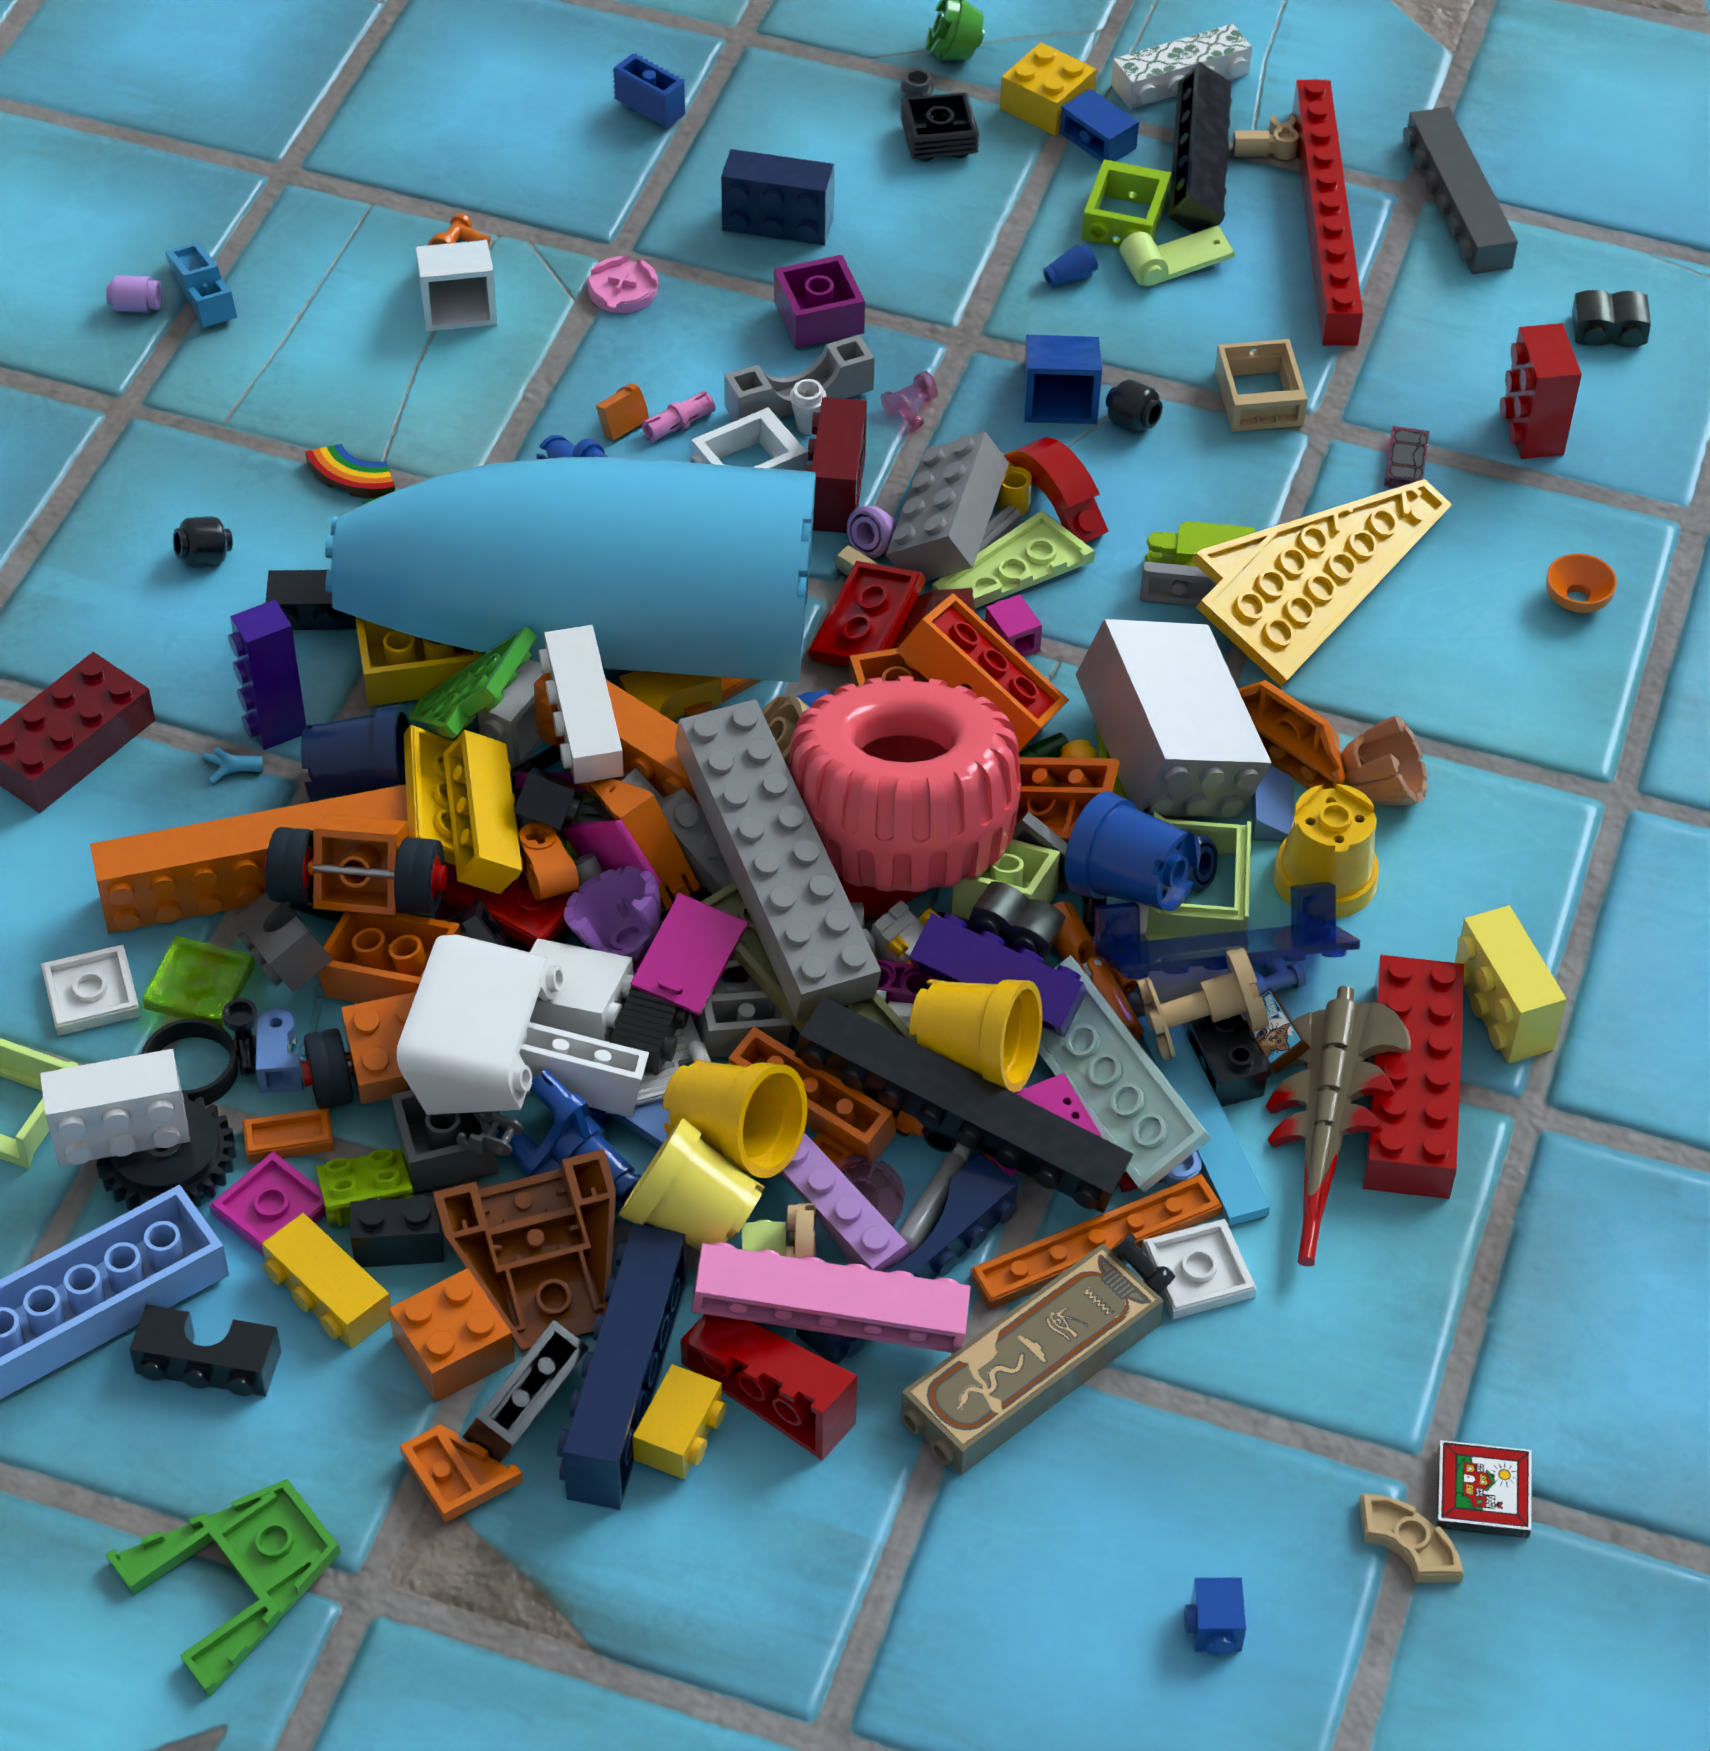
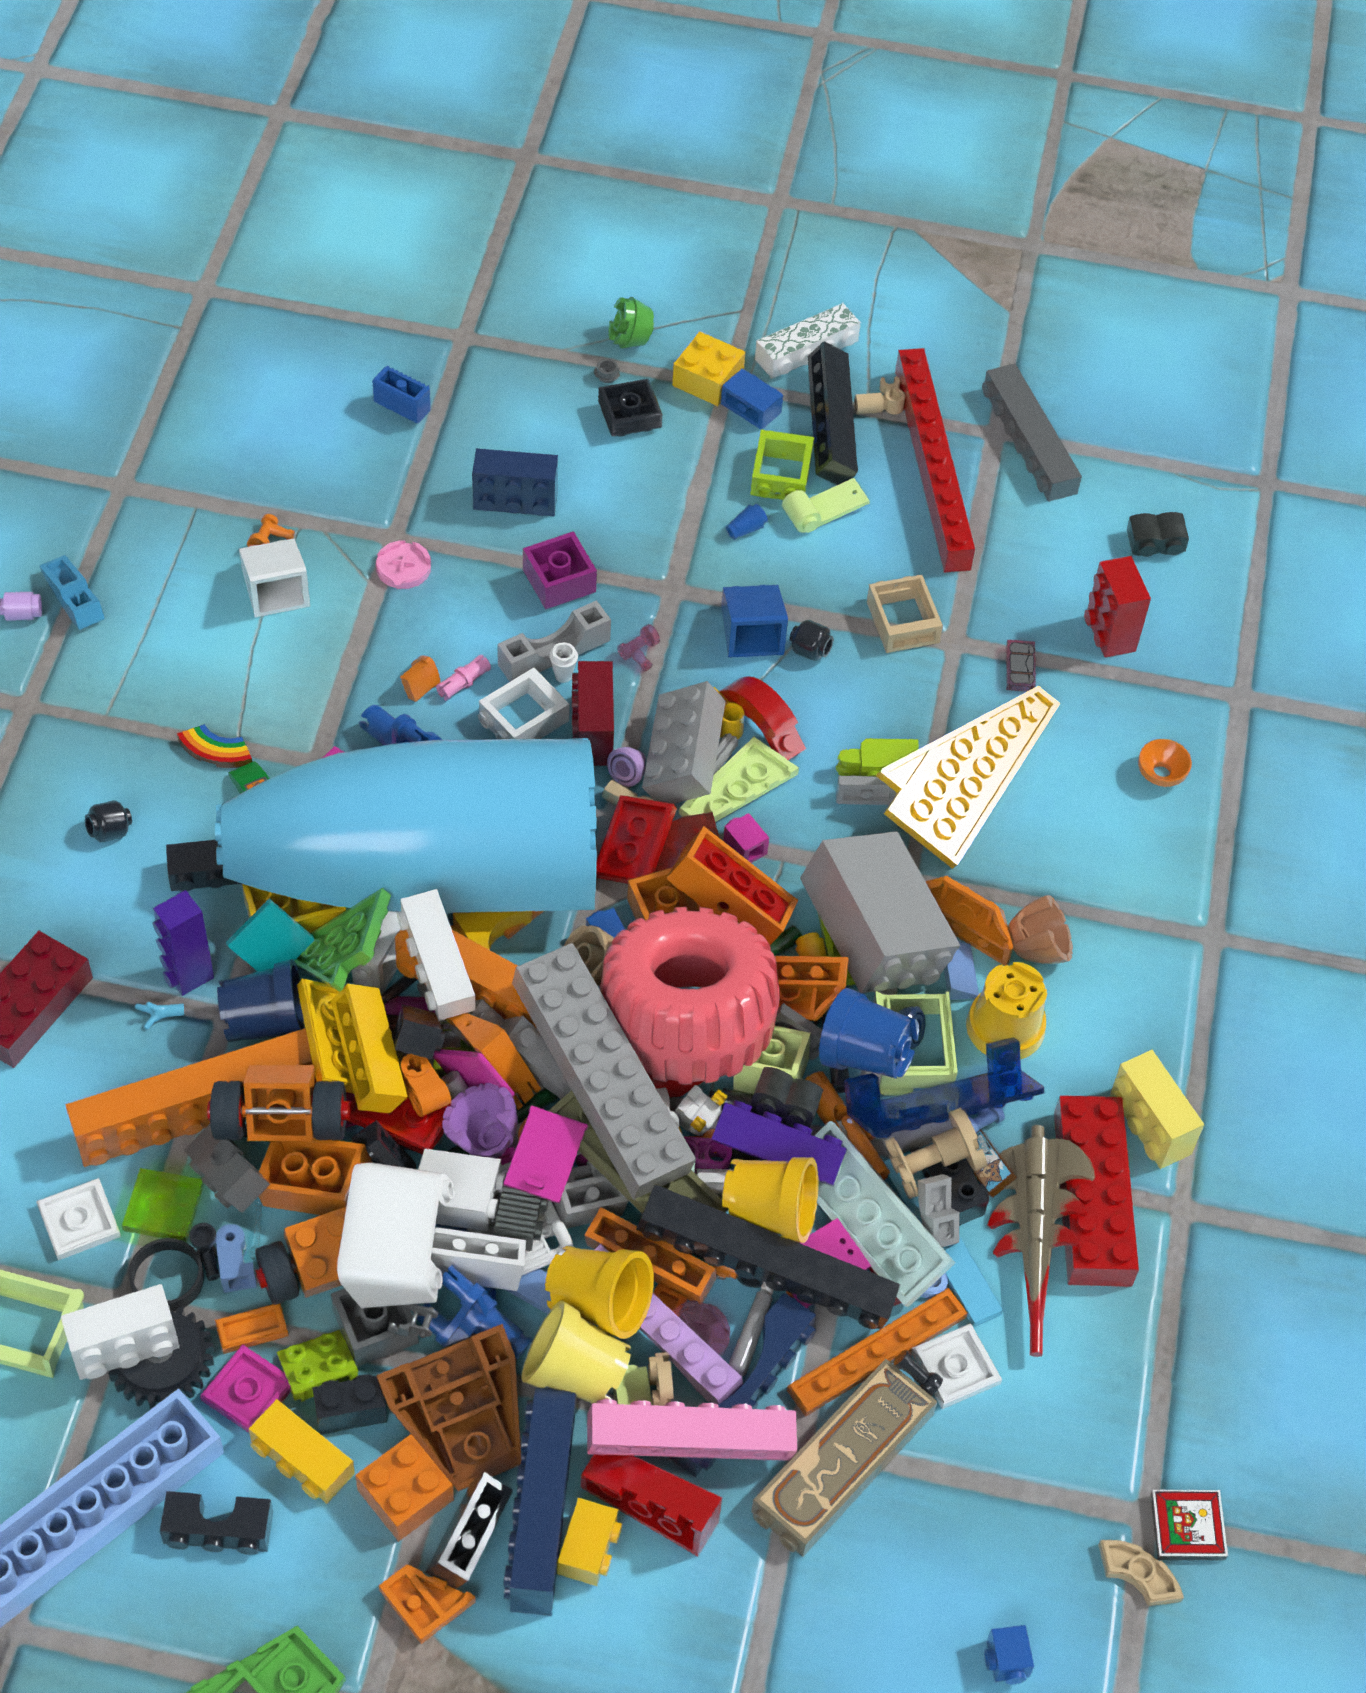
camera: 10 degrees left, 5 degrees up
(380, 678) = (269, 938): none -> teal tile
(1196, 1071) = (936, 1209): none -> light grey slope

